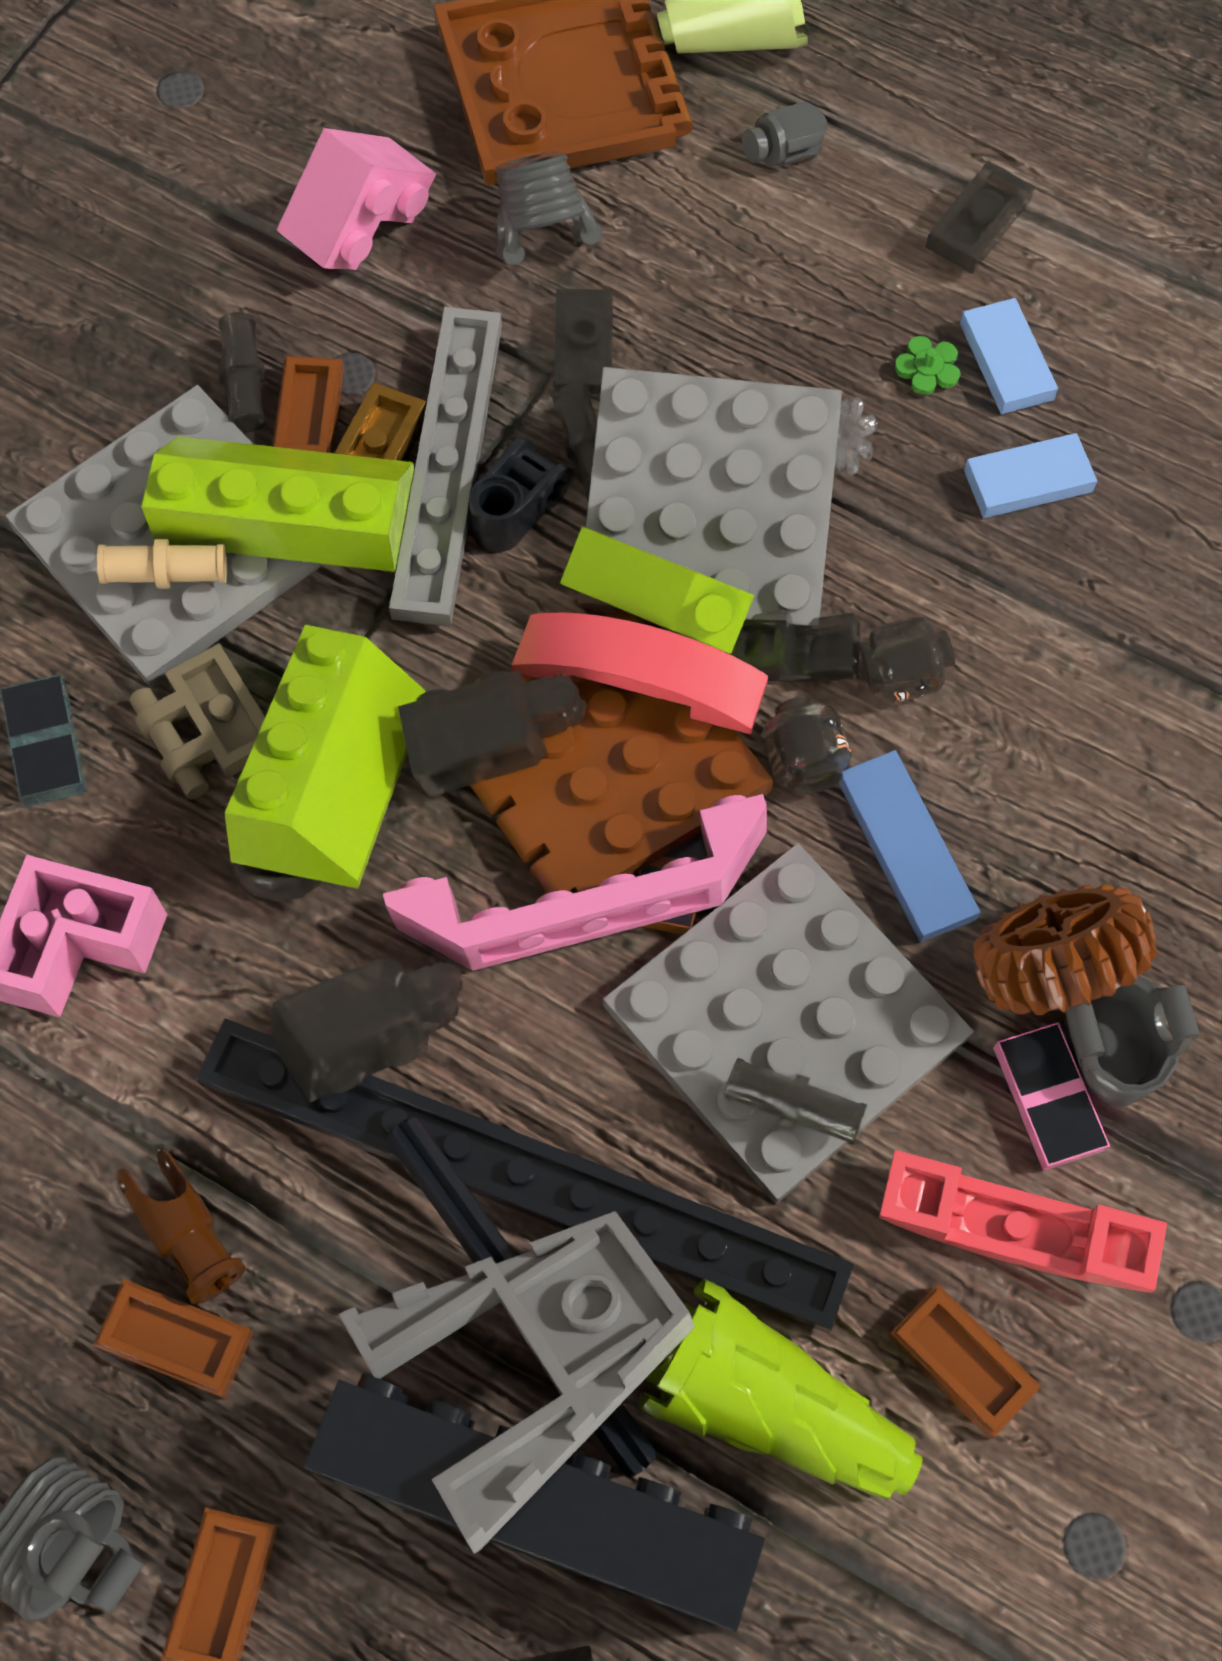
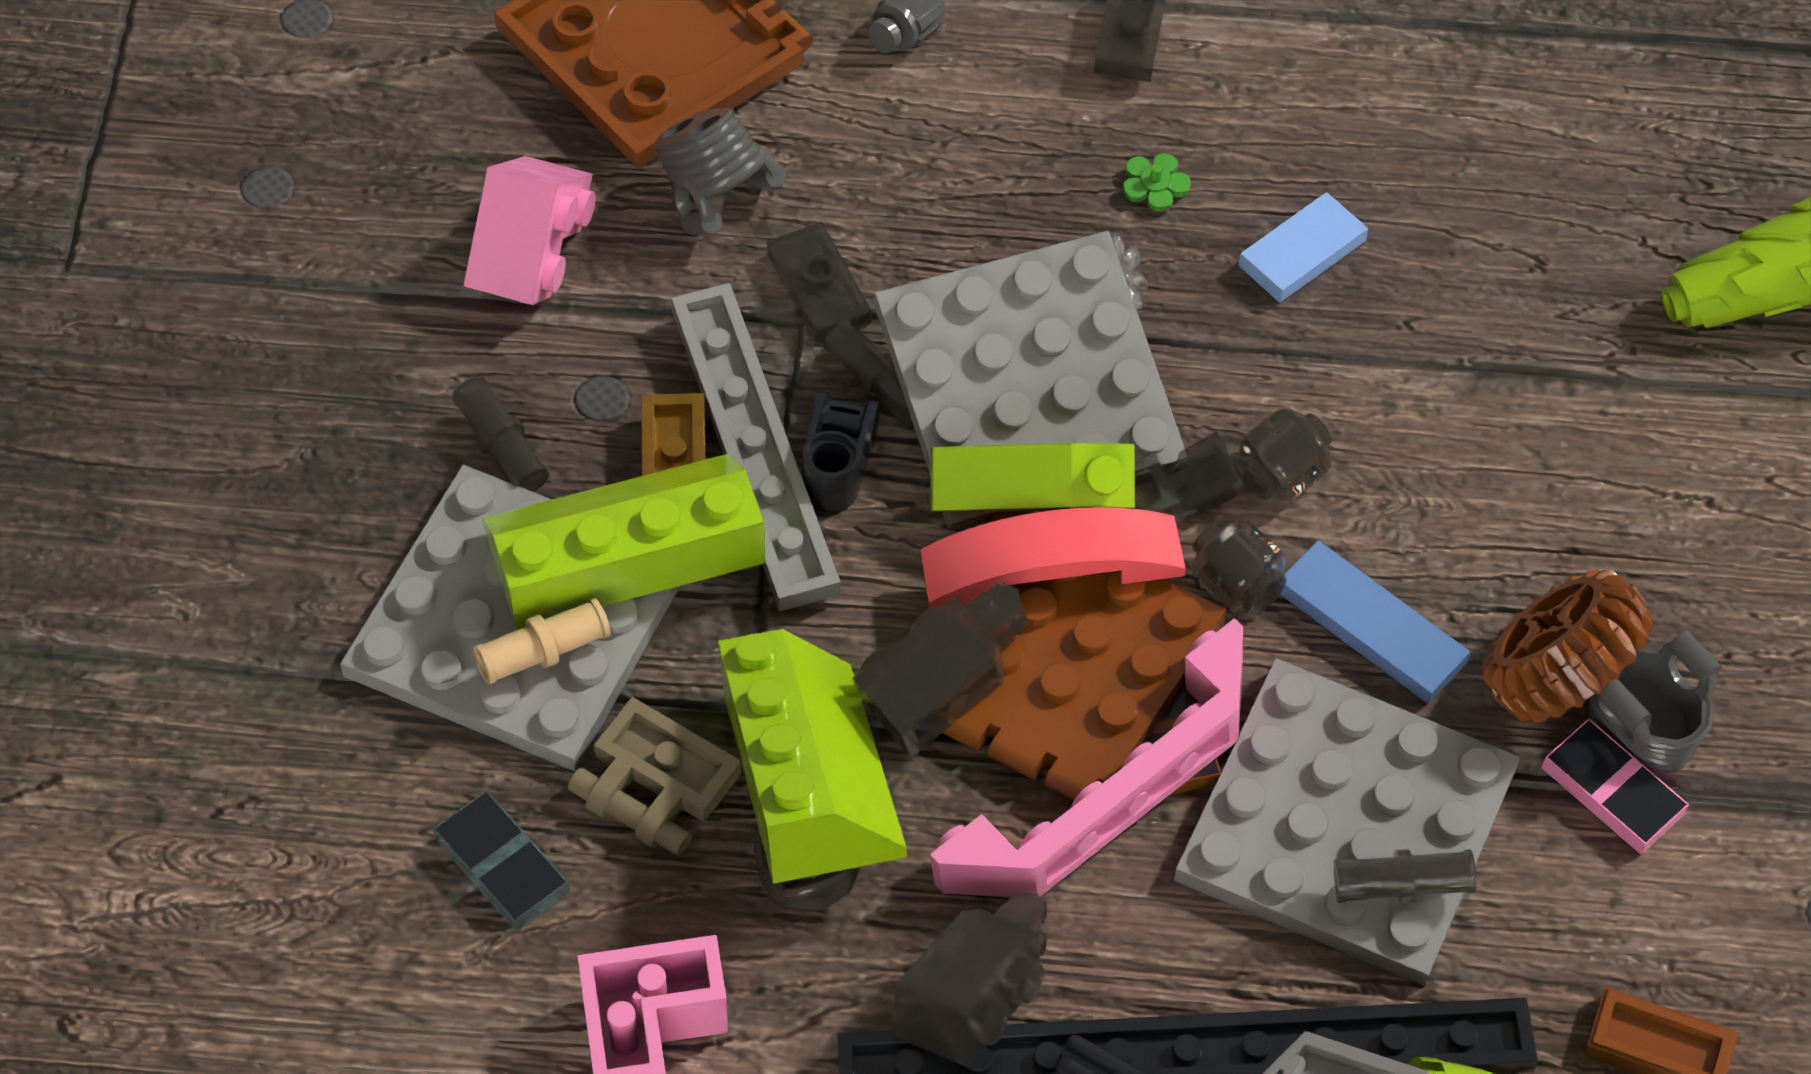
camera: 25 degrees left, 10 degrees down
(309, 404) = (581, 441): dark orange tile -> none
(1008, 356) = (1224, 145): light blue tile -> none
(1022, 1227) = (1653, 907): coral slope -> none

